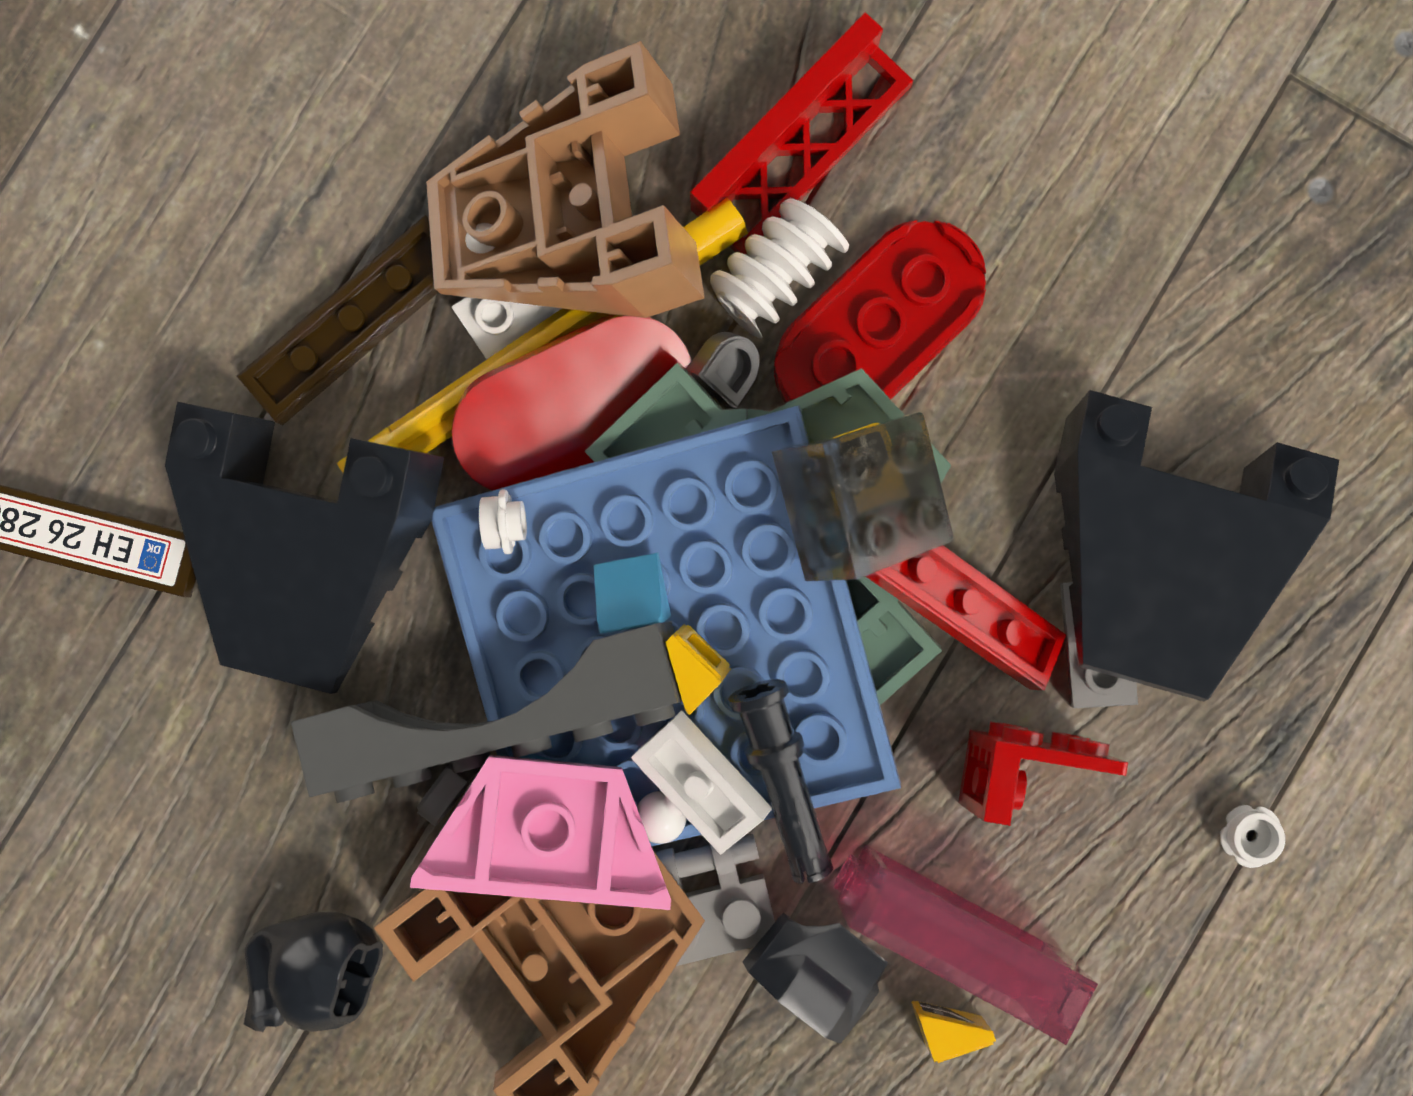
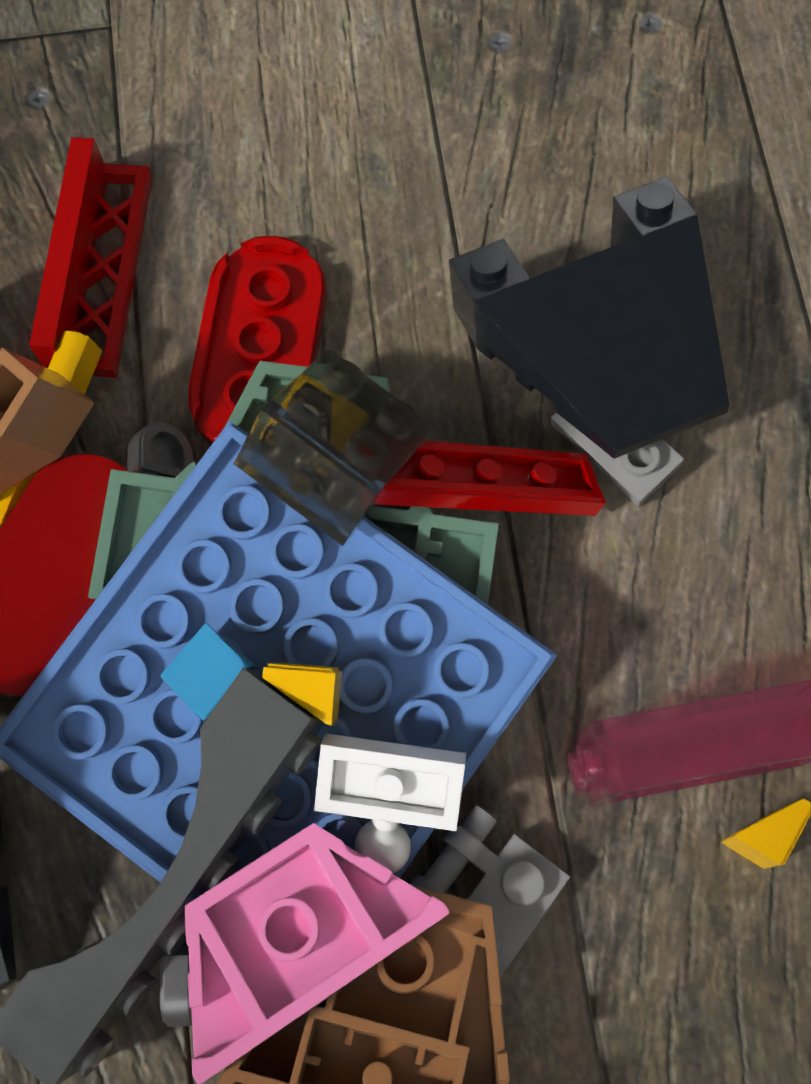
camera: 35 degrees left, 15 degrees down
(501, 521) = (53, 700): white plate -> none
(775, 262) = (139, 353): white piece -> none
(776, 753) = (430, 703): black pin -> none
(817, 974) = (624, 872): black slope -> none
(991, 770) = (618, 578): red bracket -> none

